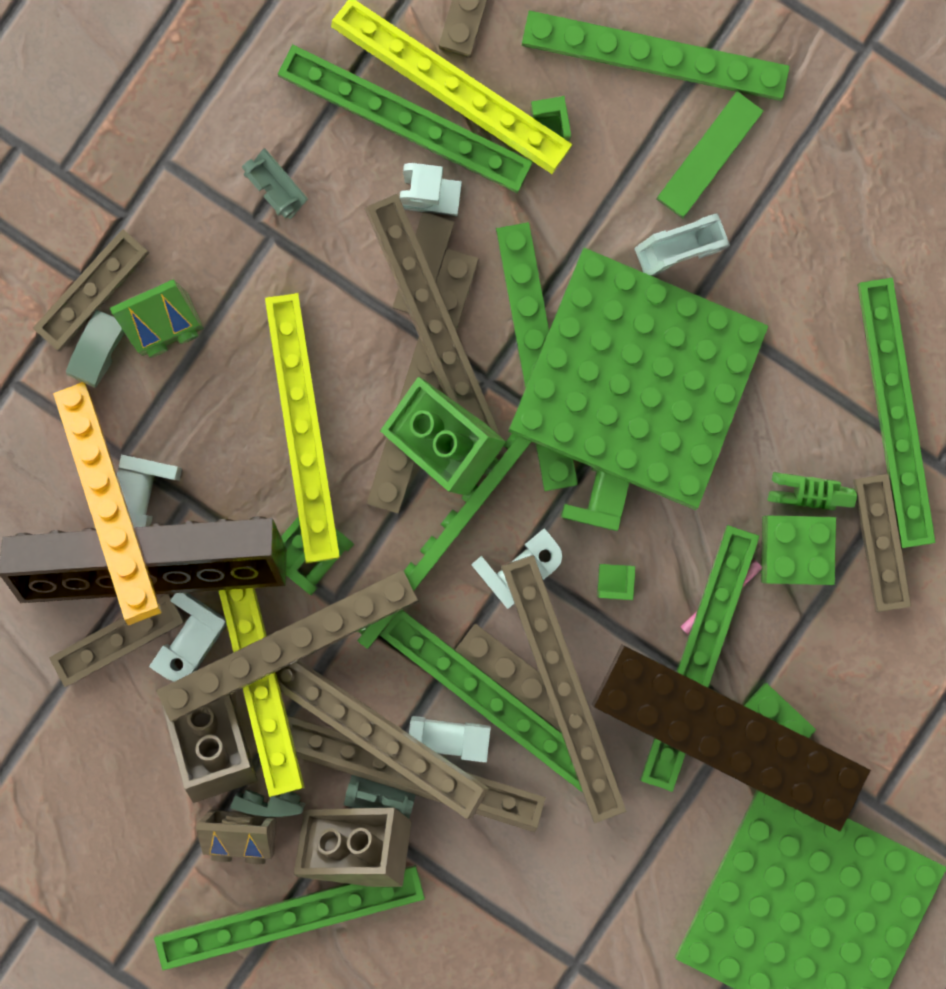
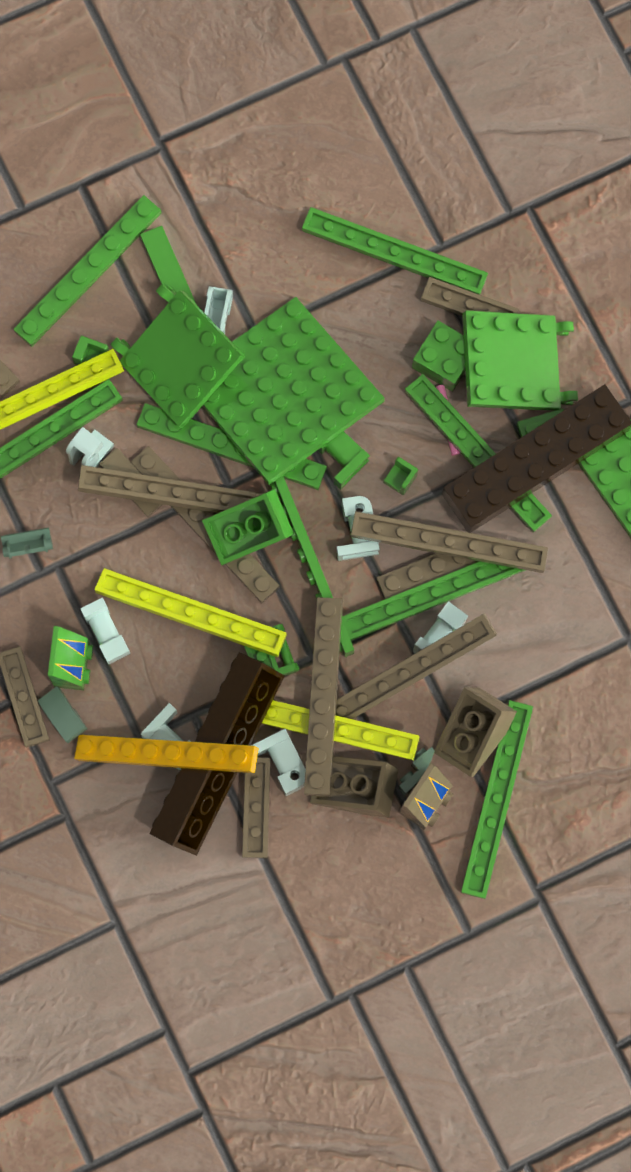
camera: 60 degrees left, 10 degrees down
(222, 342) = (111, 643): none -> light aqua piece
(341, 753) = (431, 687): dark tan plate -> none
(370, 794) = (445, 703): sand green hinge -> none
(605, 231) = (180, 357): none -> bright green plate
(812, 492) = (414, 328): bright green hinge -> none
(839, 638) = (514, 361): none -> bright green plate

